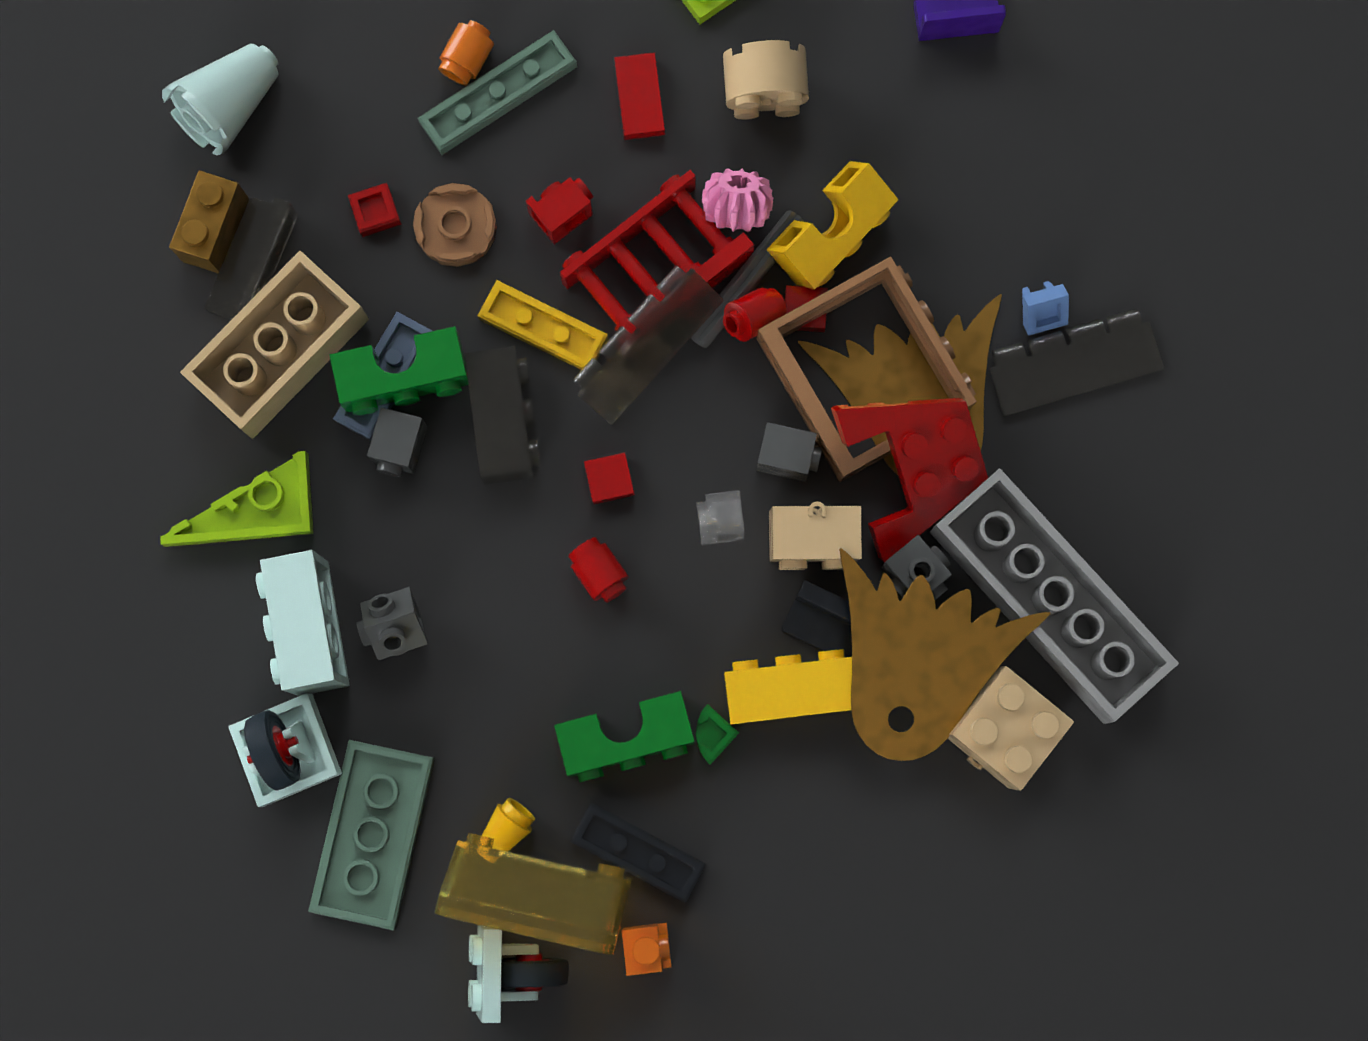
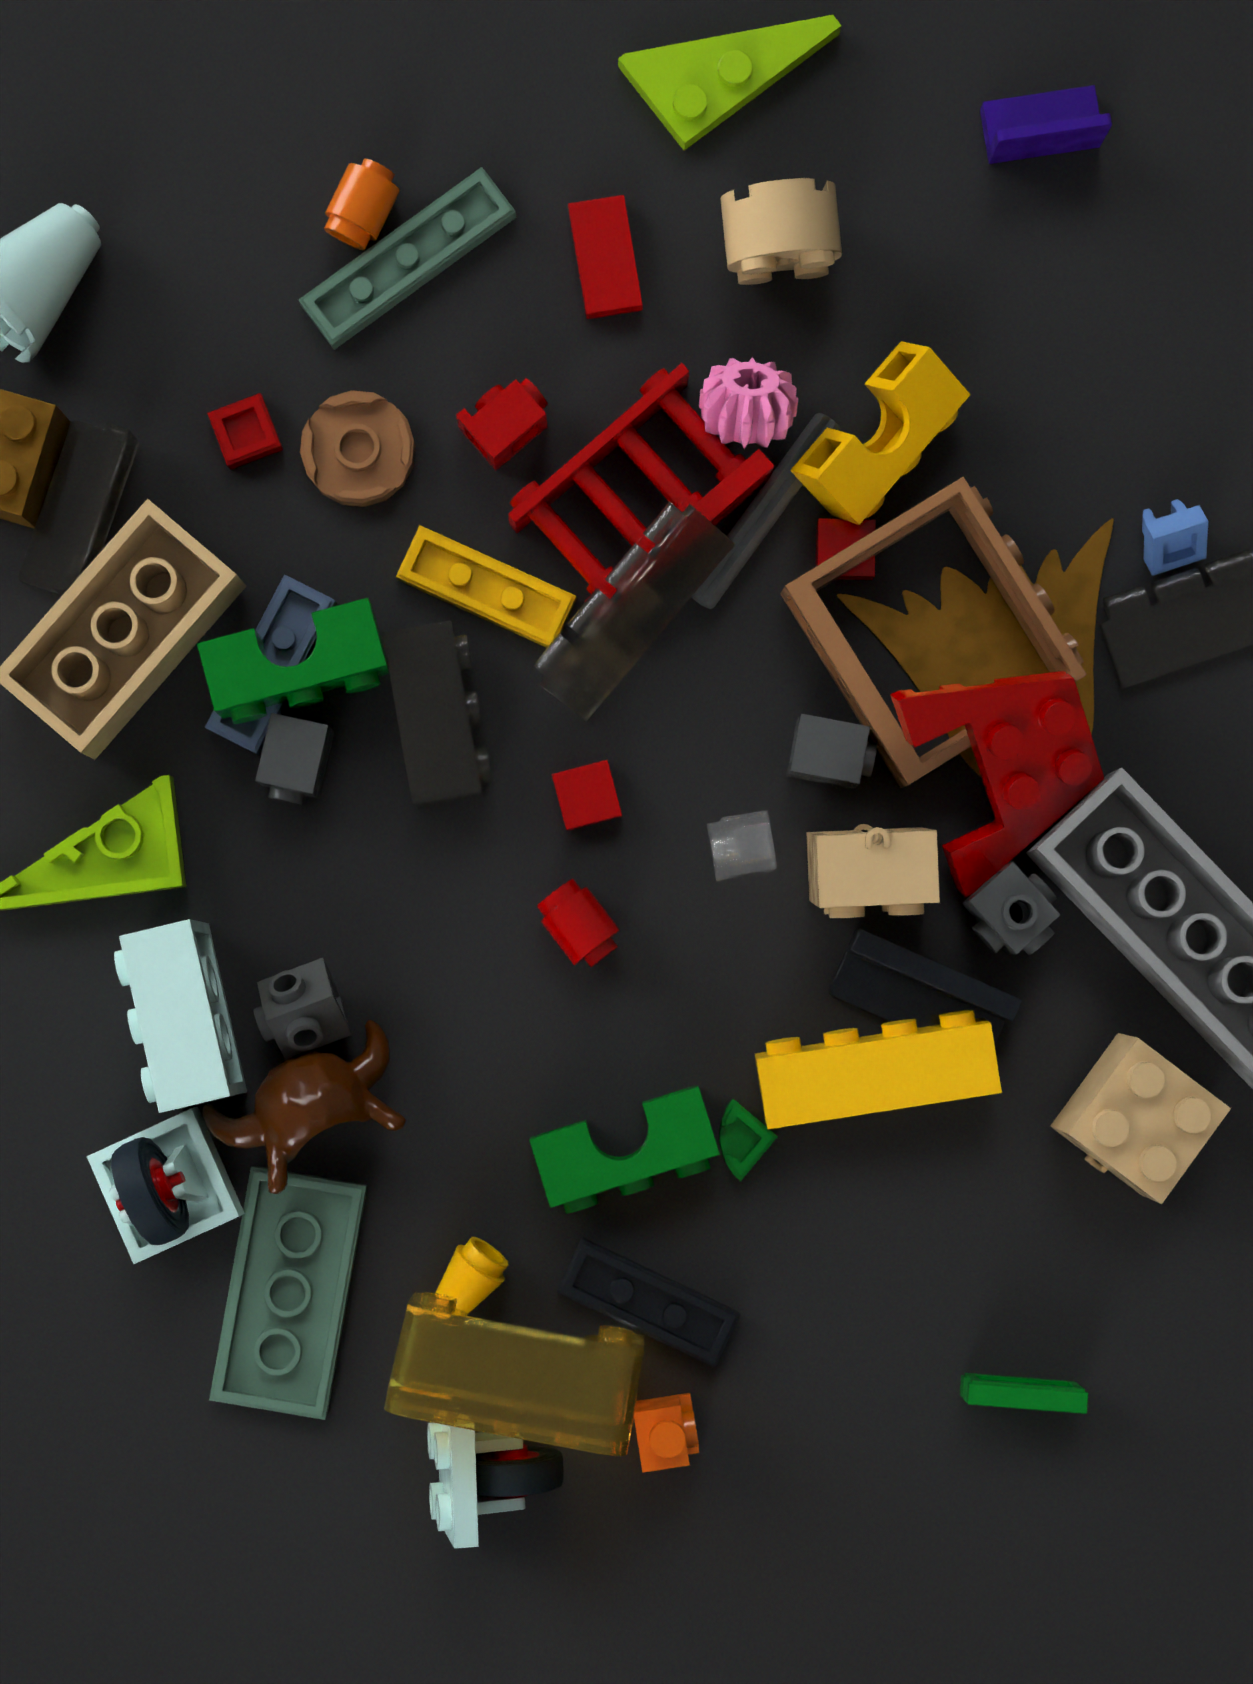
camera: 10 degrees left, 5 degrees up
(391, 688) = (307, 1098): none -> reddish brown piece
(752, 312) = (776, 560): red brick -> none
(915, 930) = (1023, 1393): none -> green tile
(919, 659) = (1021, 1033): pearl gold piece -> none

